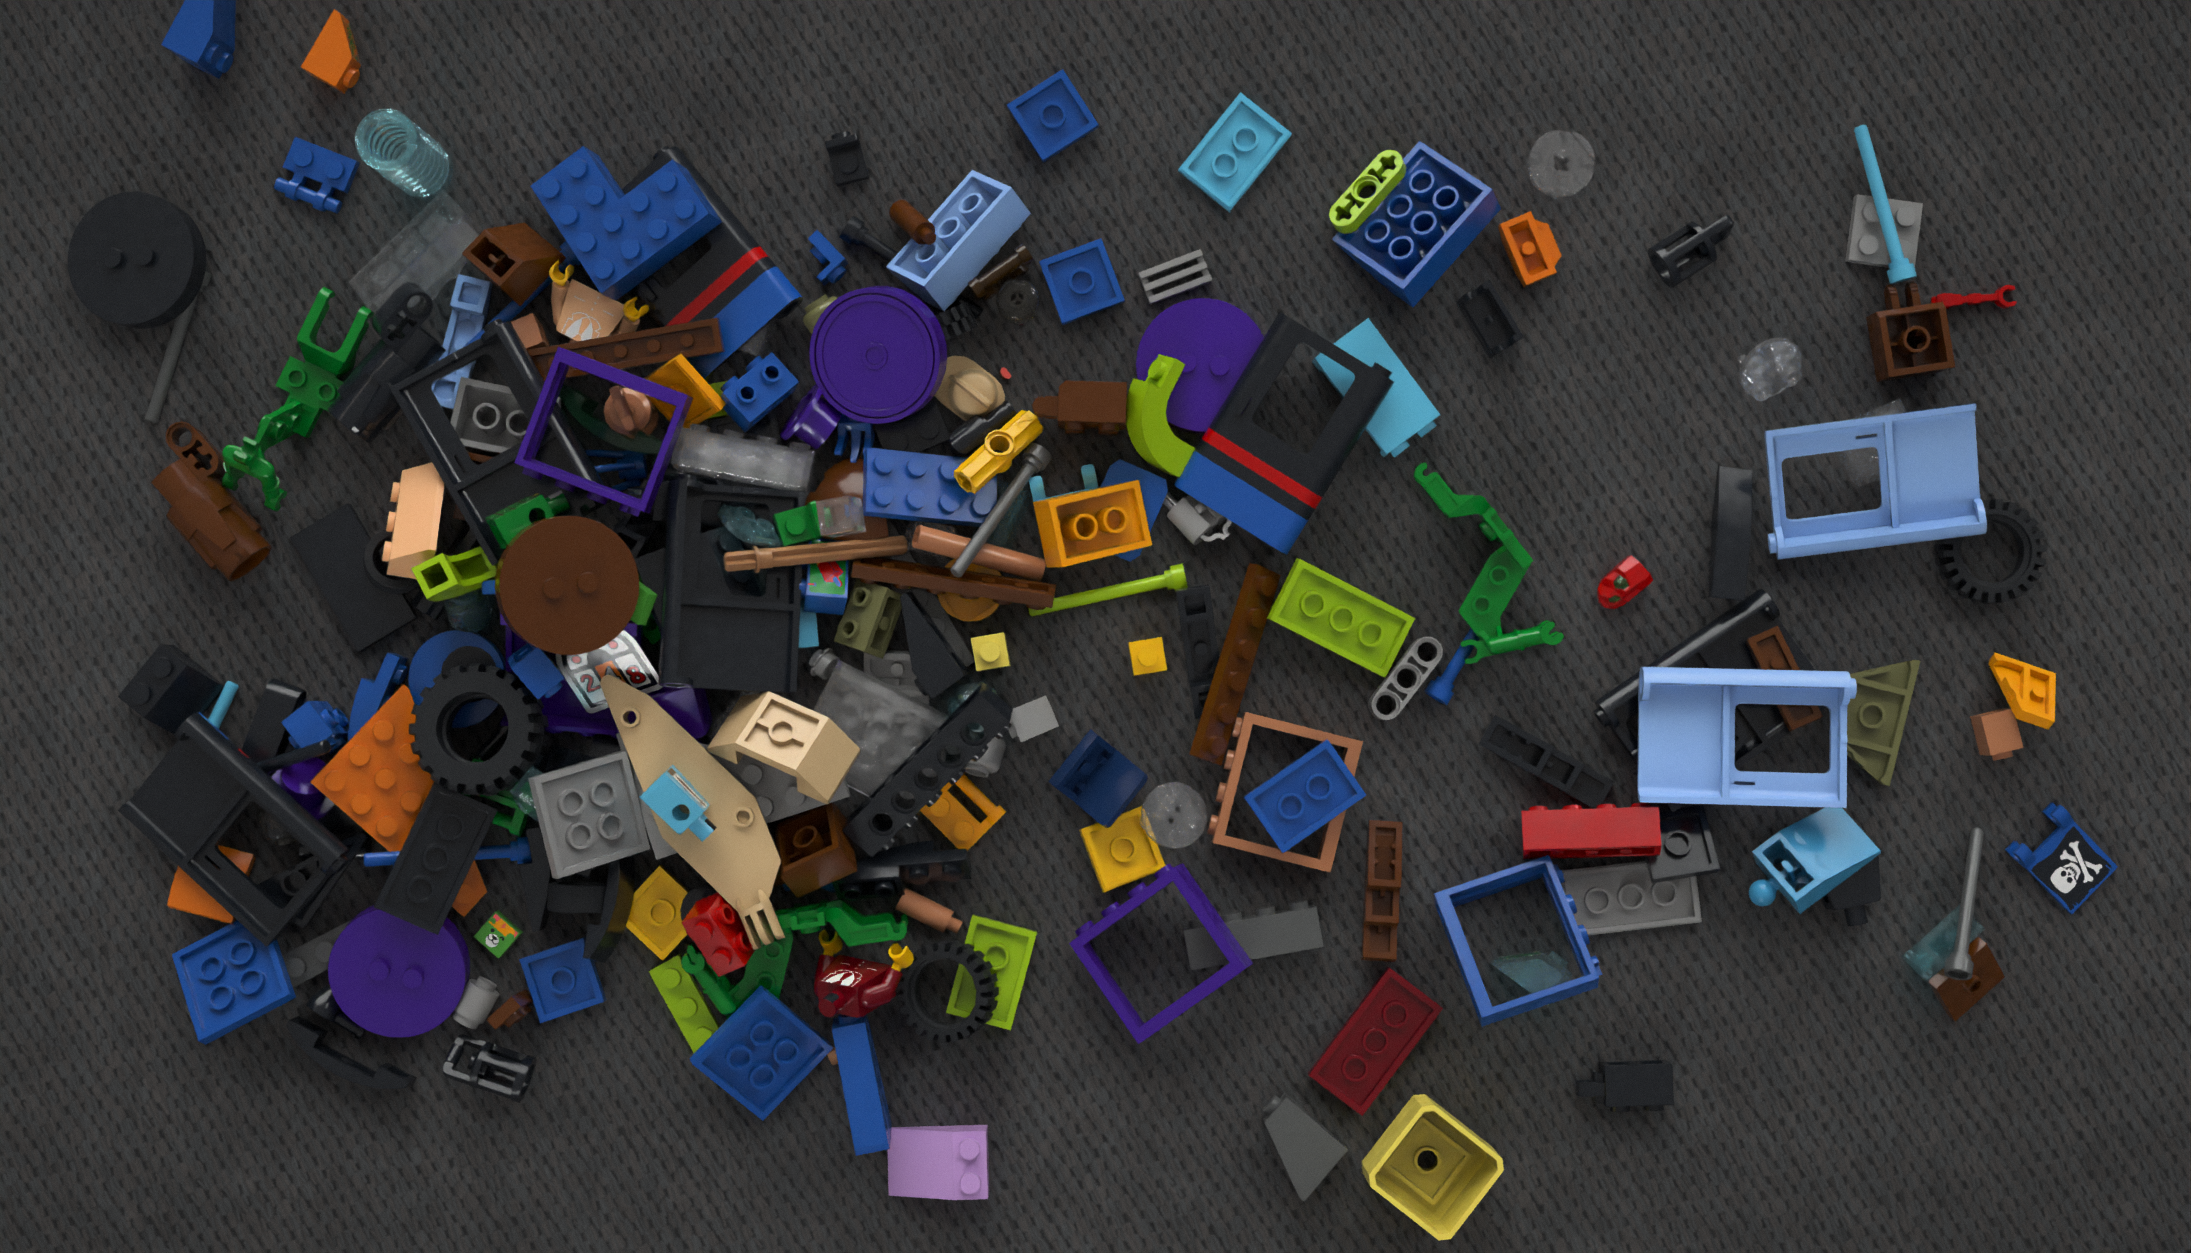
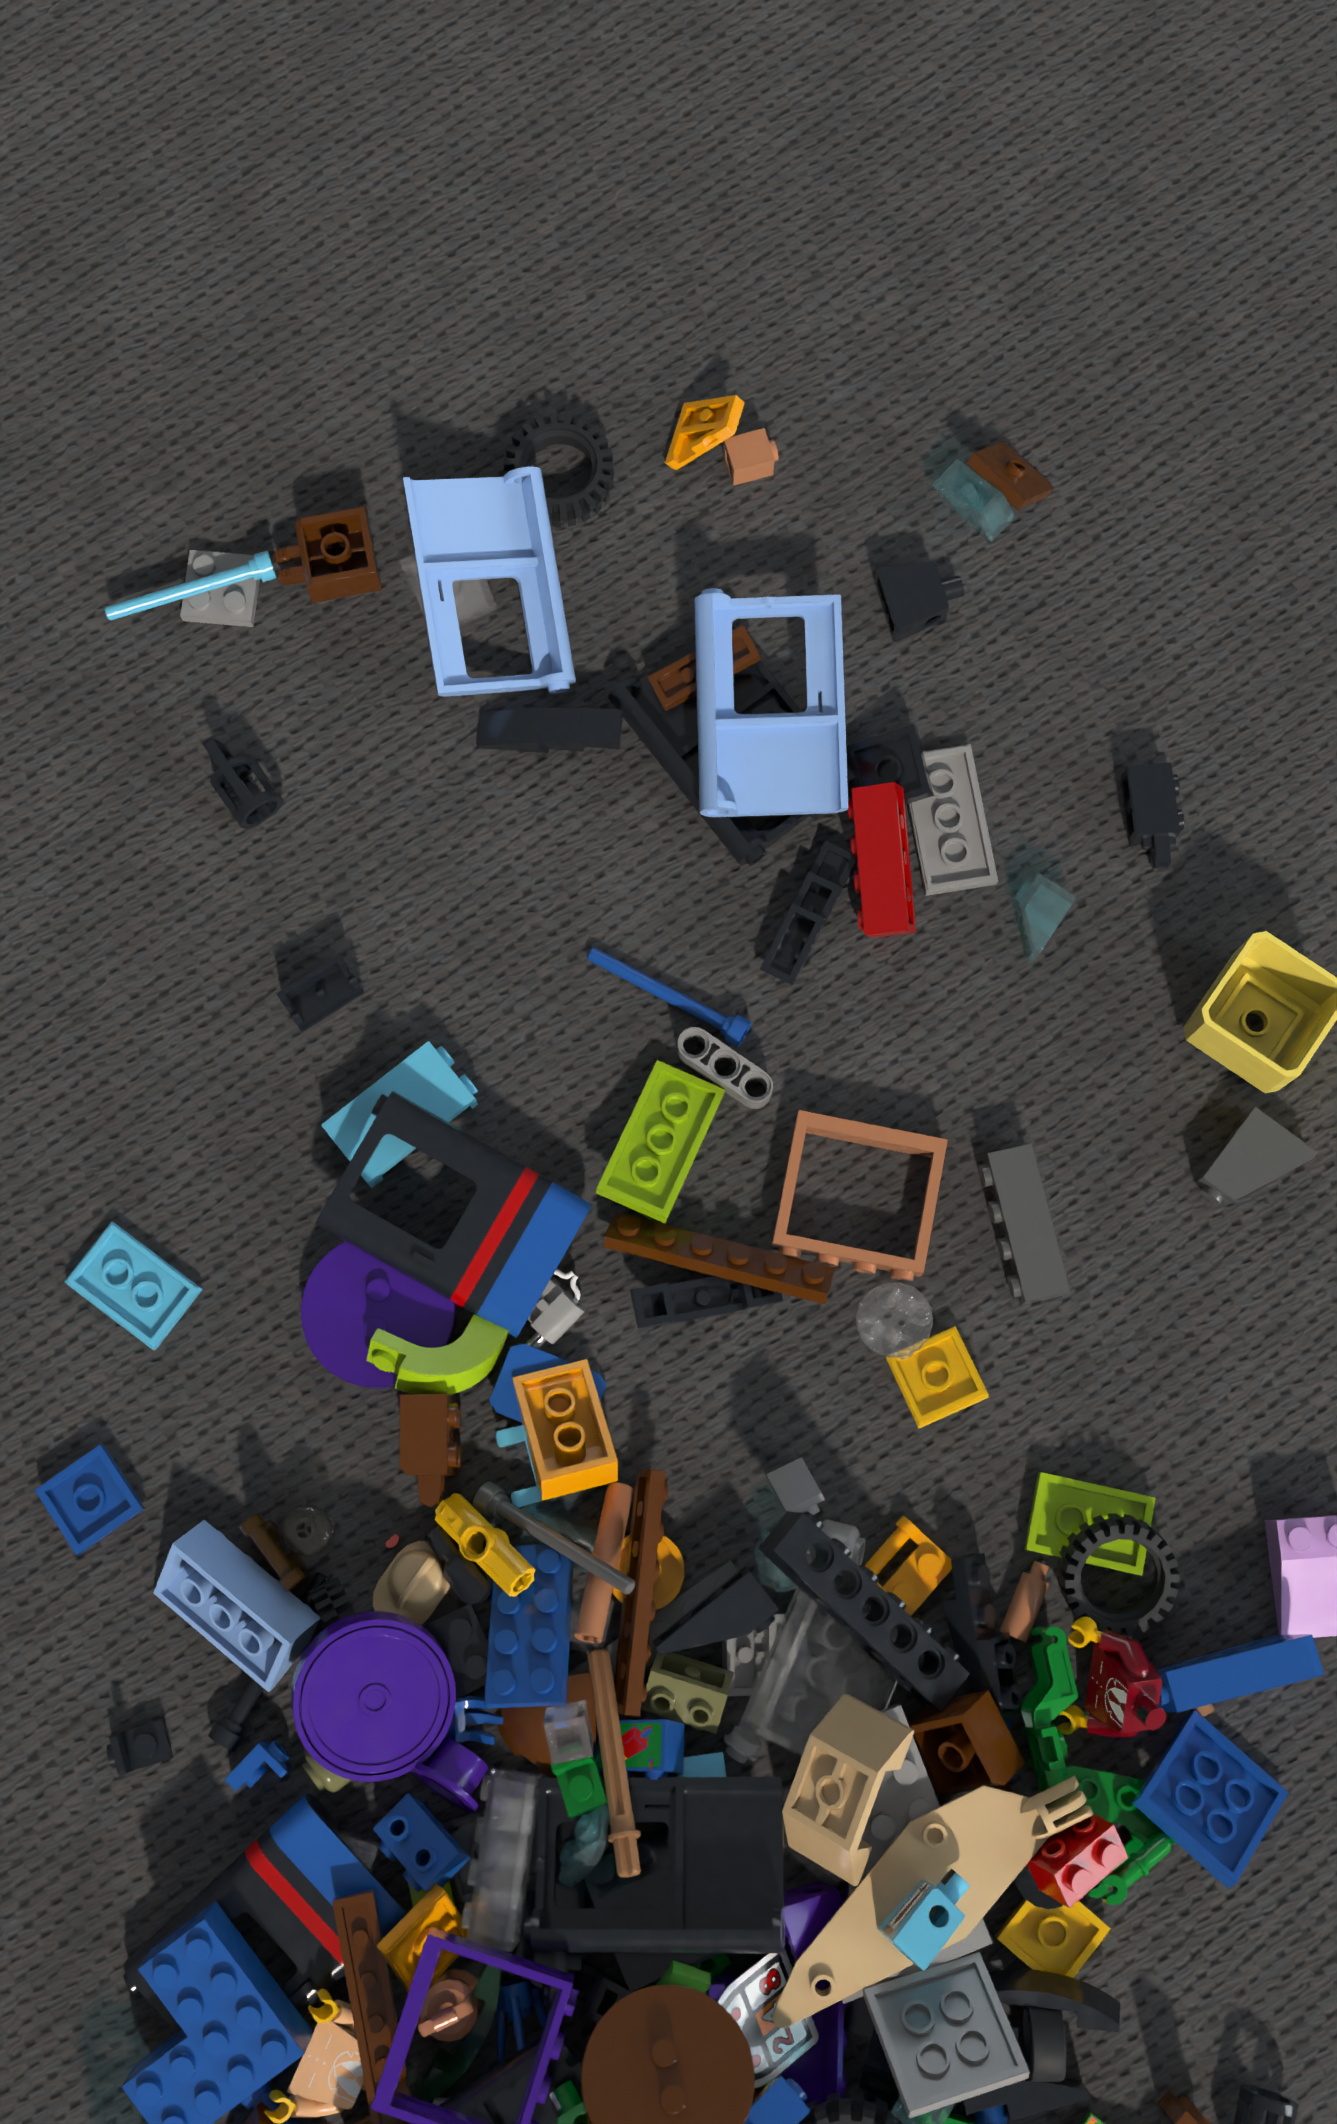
camera: 90 degrees left, 10 degrees down
(562, 980) = (1145, 2056): blue plate -> none
(685, 1002) = (1157, 1896): lime plate -> none
(912, 222) = (215, 1661): reddish brown cylinder -> none
(990, 652) = (719, 1542): light yellow brick -> none
(1081, 281) = (283, 1455): blue plate -> none
(1099, 779) = (860, 1406): dark blue bracket -> none
(1147, 656) = (715, 1358): yellow brick -> none
(1172, 579) = (624, 1334): lime piece -> none
(1201, 266) = (265, 1318): light grey tile -> none
(1209, 918) = (1010, 1271): dark purple window -> none
(1304, 796) = (864, 1170): blue plate -> none
(1366, 178) = (194, 1158): lime beam -> none
(1375, 1041) = (1130, 1084): dark red plate -> none
(1382, 890) = (962, 1083): reddish brown slope -> none
(1421, 225) = (213, 1076): blue slope -> none
(1497, 578) = (609, 971): green piece -> none
(1530, 248) = (241, 954): orange slope -> none
(1561, 144) = (146, 945): clear plate -> none
(1564, 907) = (970, 883): blue window -> none
(1623, 583) = (608, 839): red rock -> none
(1770, 368) = (369, 695): clear plate -> none
(1814, 855) = (892, 627): dark azure slope -> none
(1879, 717) = (739, 570): olive wing -> none
(1952, 300) = (292, 513): red piece -> none
(1959, 963) = (998, 477): dark grey piece -> none
(2066, 861) = (880, 385): flag -> none

